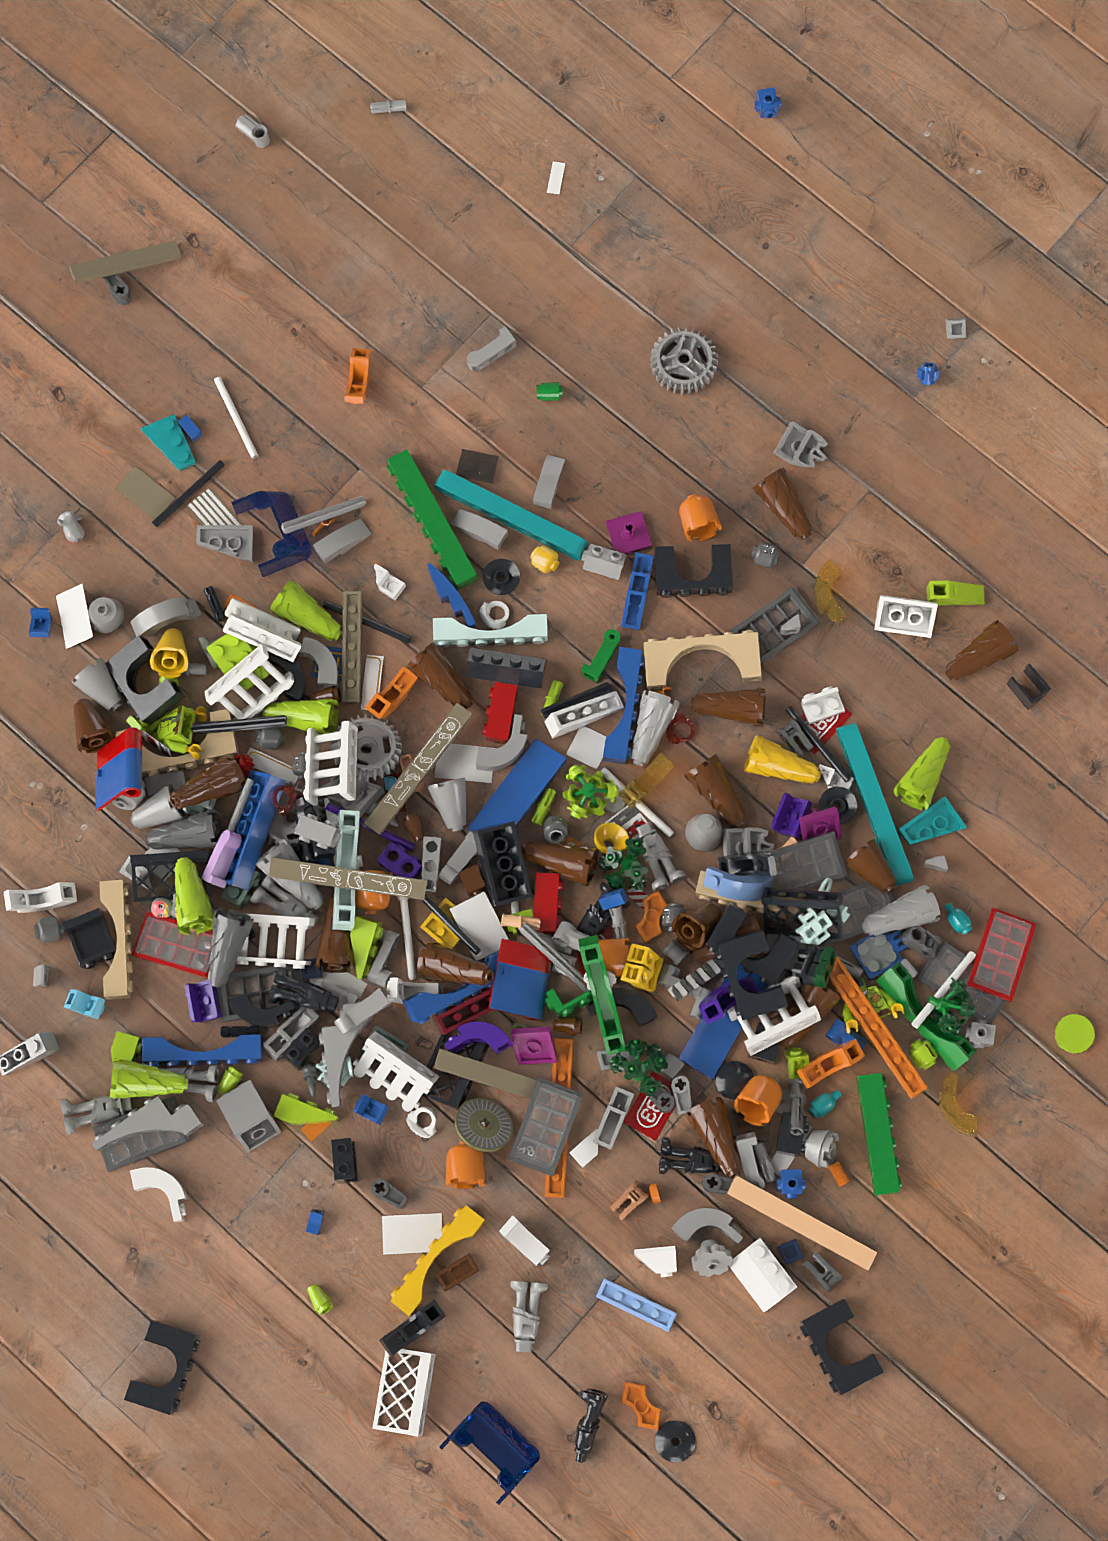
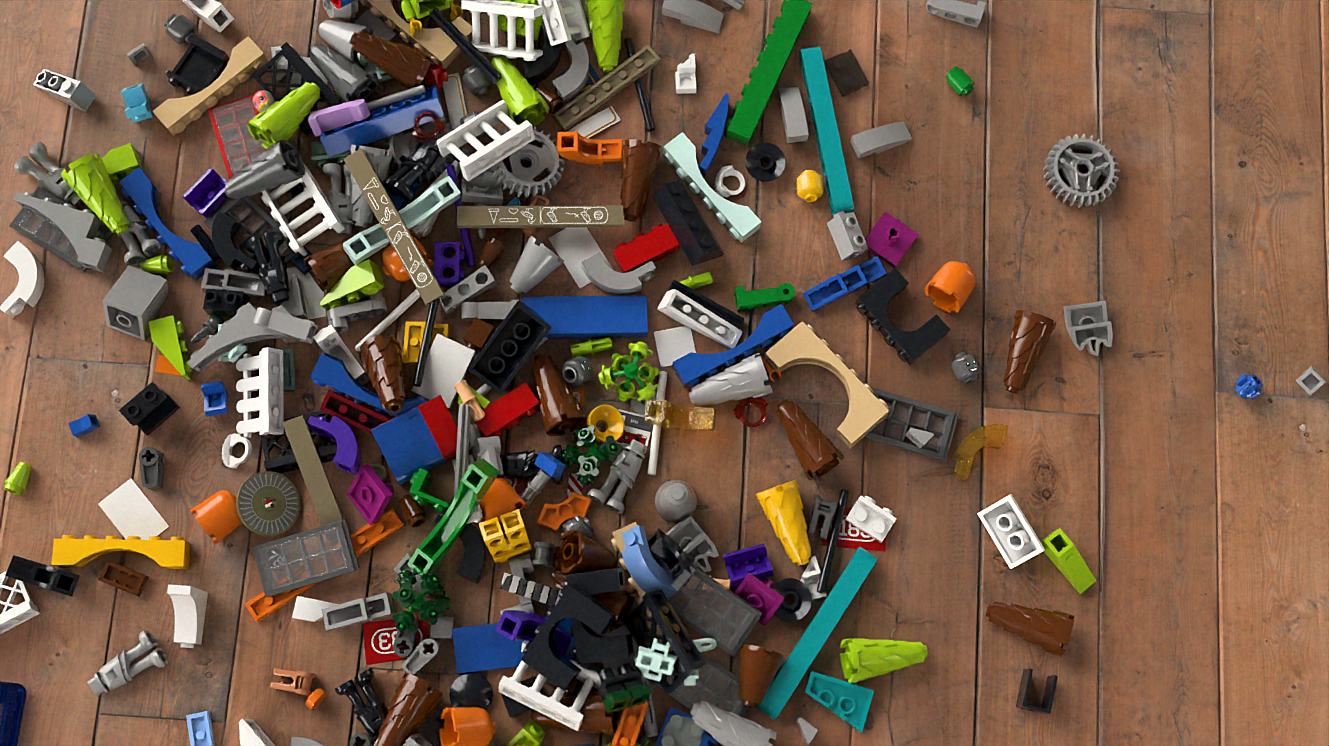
camera: 45 degrees right, 0 degrees up
(323, 833) = (414, 172): light grey brick -> none
(713, 783) = (723, 474): reddish brown cone -> none

